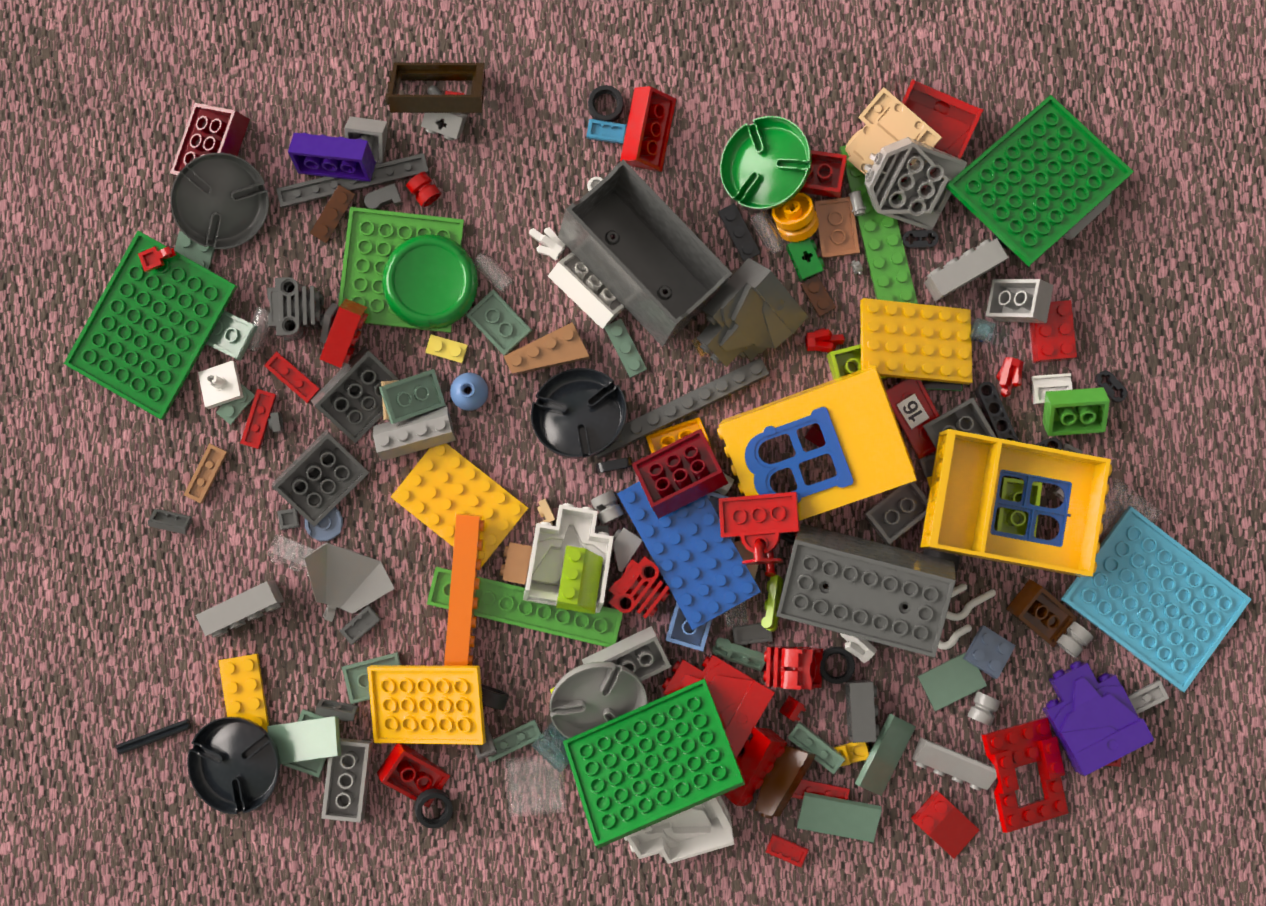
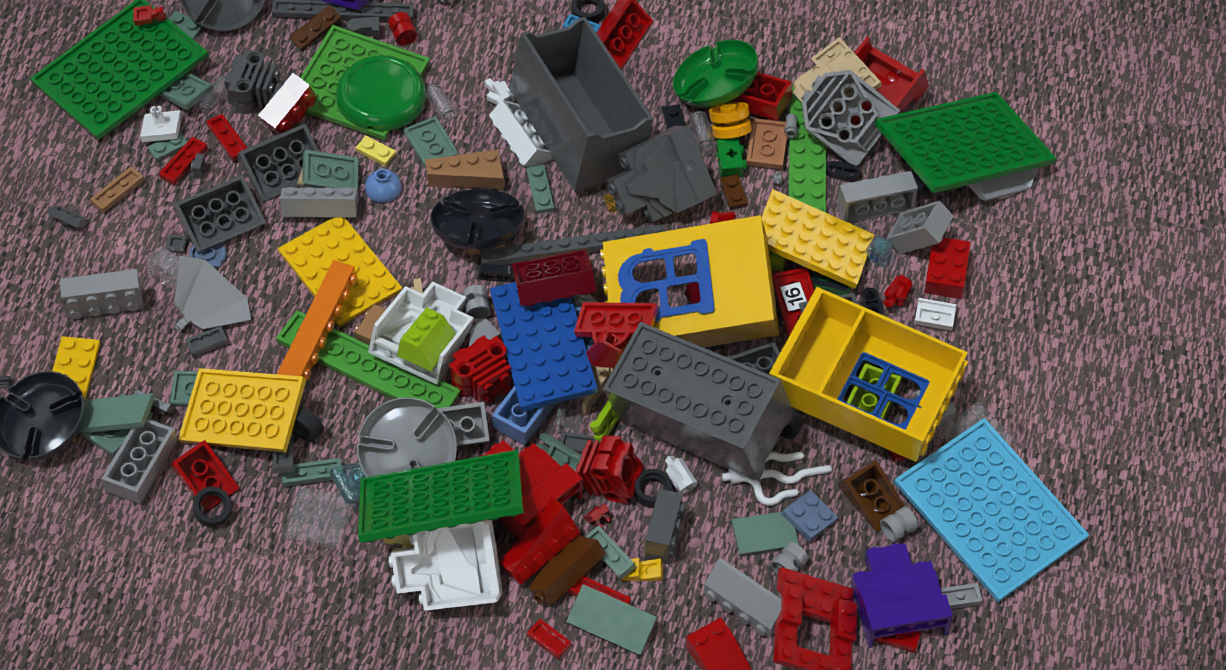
camera: 15 degrees right, 30 degrees down
(885, 754) = (676, 574): sand green tile -> none
(1075, 411) = (953, 328): bright green brick -> none
(1114, 382) = (991, 329): black beam -> none

